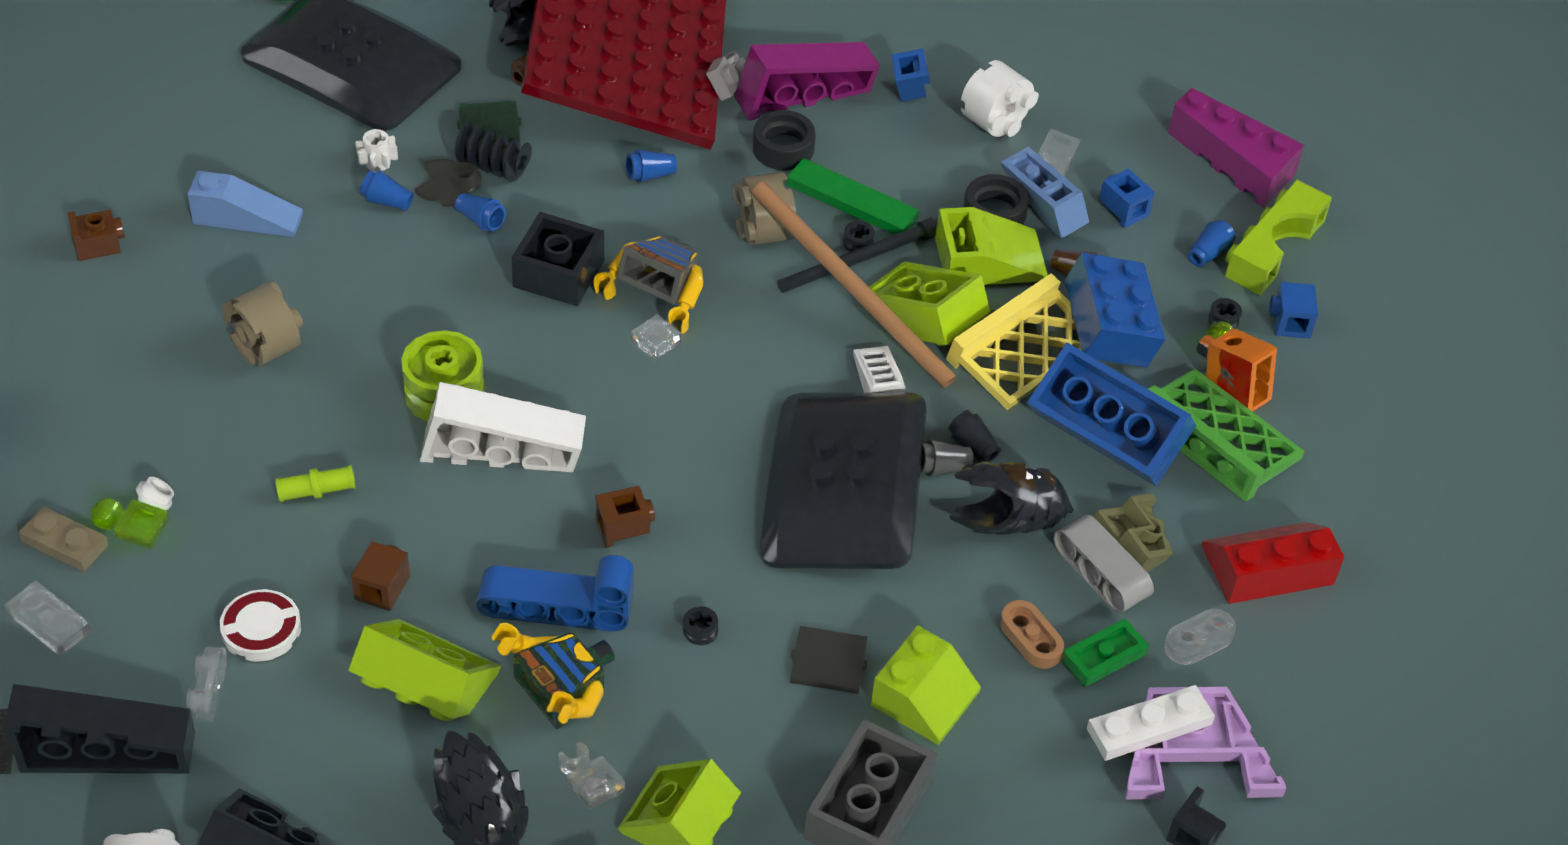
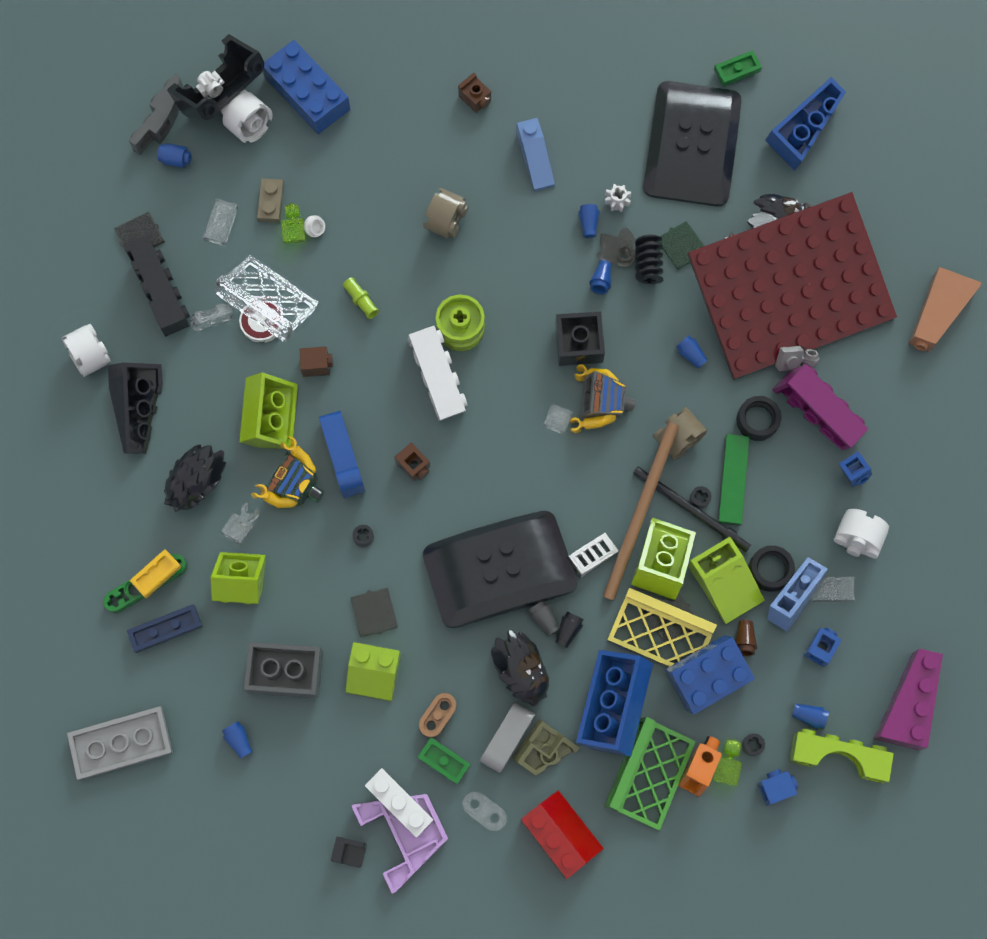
camera: 70 degrees right, 25 degrees up
(227, 615) = (256, 307): none -> clear fence

